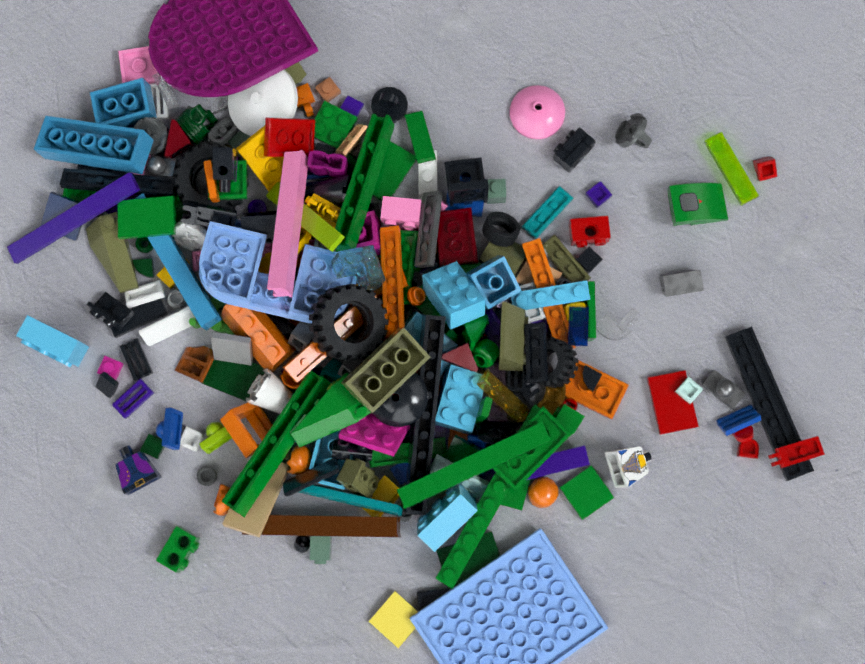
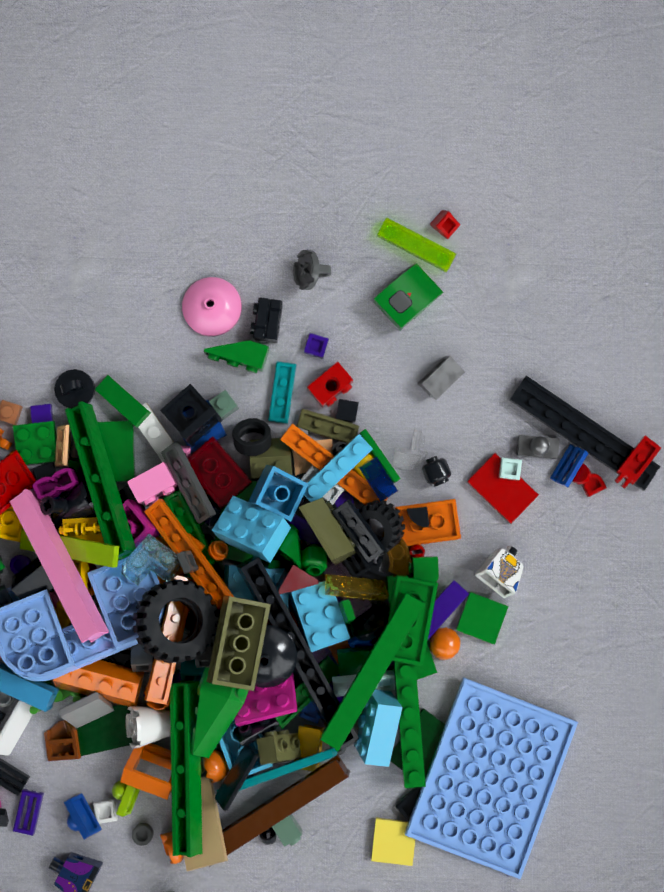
camera: 40 degrees left, 5 degrees up
(152, 446) = (75, 842): dark green tile -> none
(317, 181) = (57, 506): none -> black bush
(387, 285) = (187, 562): none -> dark grey tile
(537, 162) = (245, 353): none -> green slope
(628, 352) = (436, 471): none -> black head

